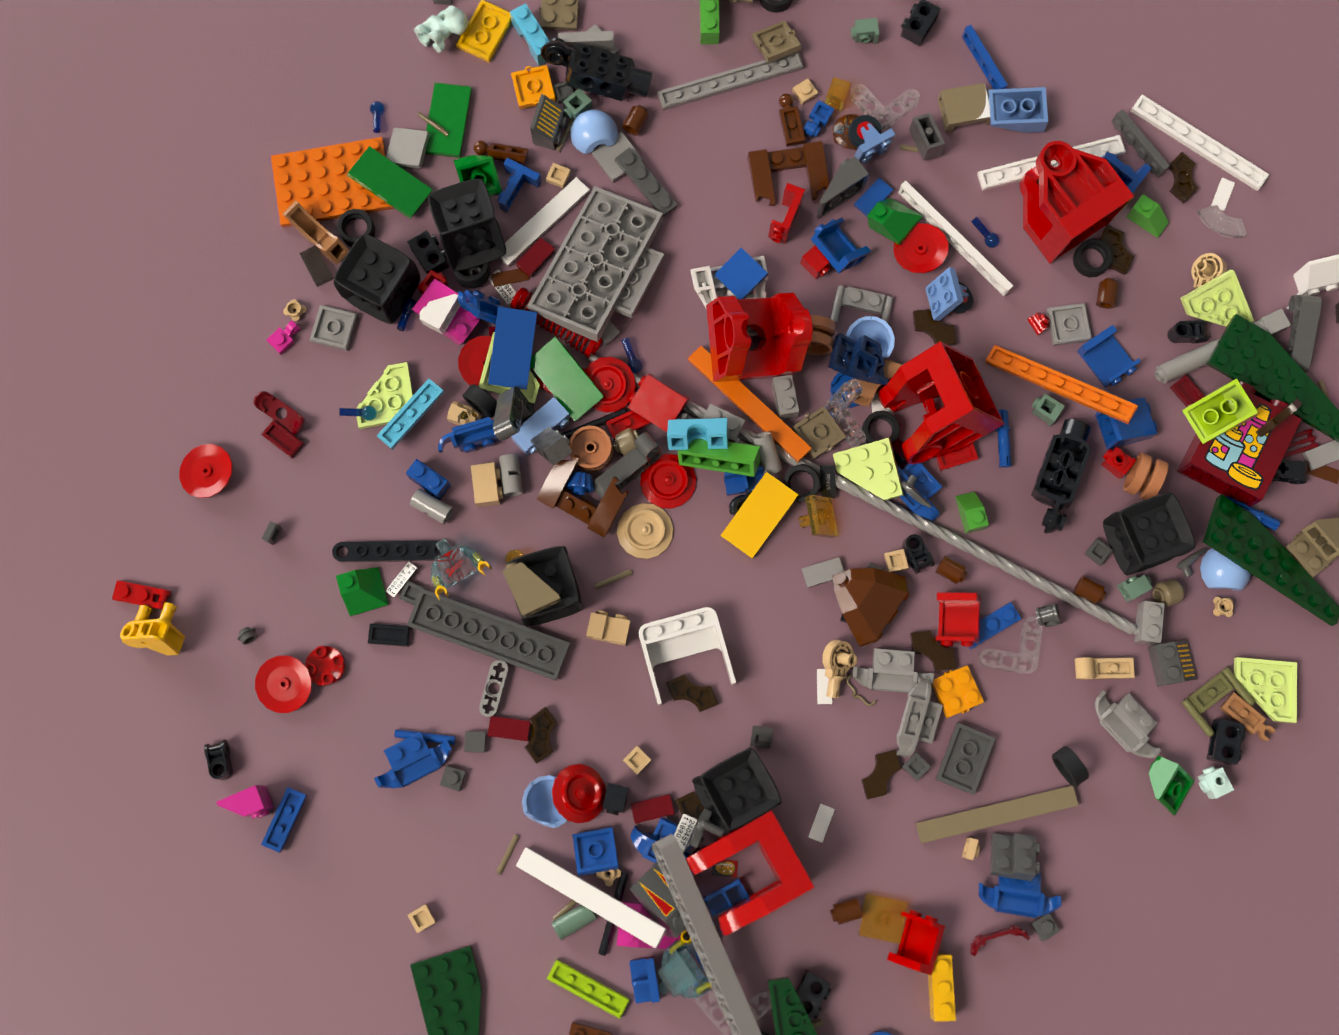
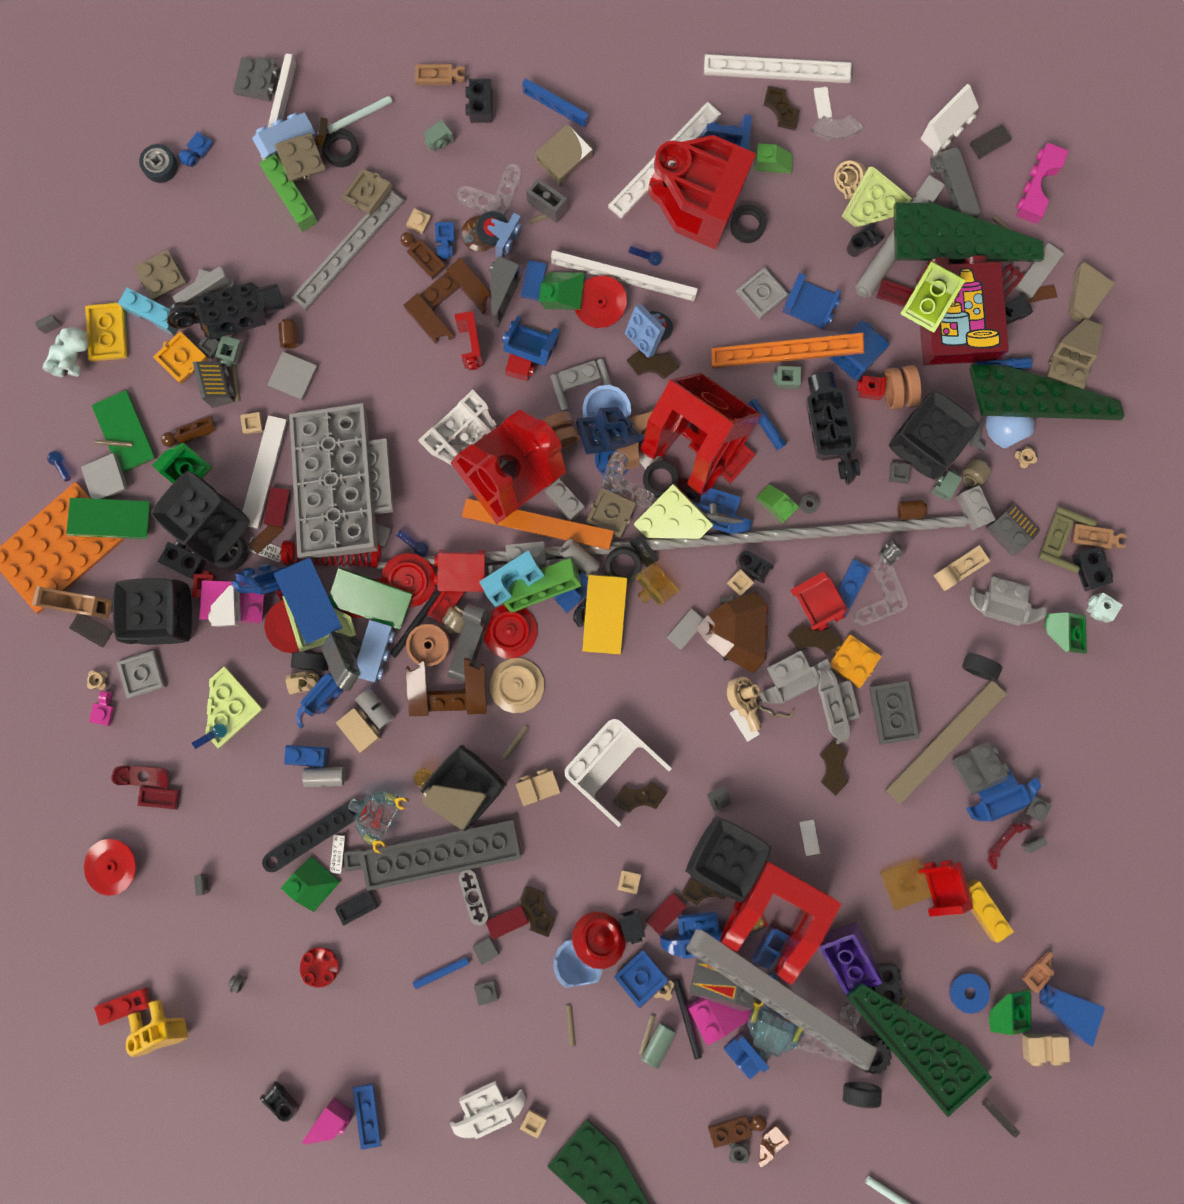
camera: 30 degrees left, 5 degrees up
(283, 684) = (294, 1005): red piece -> none
(350, 215) = (94, 565): black tyre -> none
(388, 881) = (487, 1111): none -> white plate
(407, 306) = (193, 616): clear blue bar -> none
(410, 414) = (255, 710): medium azure plate -> none
(412, 761) = (443, 1000): blue plate -> none
(520, 175) = (218, 452): blue bracket -> none
(552, 445) = (394, 664): flat silver brick -> none
(580, 483) = (438, 680): blue piece -> none
(588, 988) = (704, 1092): lime tile -> none
(591, 897) = (662, 1019): white tile -> none
(593, 129) = (256, 365): light blue cylinder -> none
(645, 182) = (331, 384): dark grey plate -> none
(684, 830) = (704, 918): white sticker -> none
(703, 824) = (716, 903): dark grey plate -> none
(741, 274) = (463, 417): blue tile -> none
(792, 949) = (850, 957): none -> dark purple slope
(837, 93) = (448, 207): clear yellow brick -> none
(846, 911) = (873, 897): reddish brown brick -> none
(916, 766) = (858, 744): dark grey plate -> none
(951, 570) = (790, 562): reddish brown brick -> none
(970, 849) = (942, 784): tan plate -> none
(995, 534) = (808, 510): none -> dark grey plate
(1019, 109) = (610, 129): medium blue slope -> none
(1022, 955) = (1034, 844): none -> dark grey tile
(1039, 322) = (737, 306): red plate -> none
(1107, 293) = (778, 247): reddish brown brick -> none
(1120, 256) = (771, 208): dark brown tile -> none
(1140, 143) = (729, 99): dark grey plate -> none
(1270, 685) = (1101, 500): yellowish green plate -> none
(1277, 419) = (984, 270): dark brown tile -> none

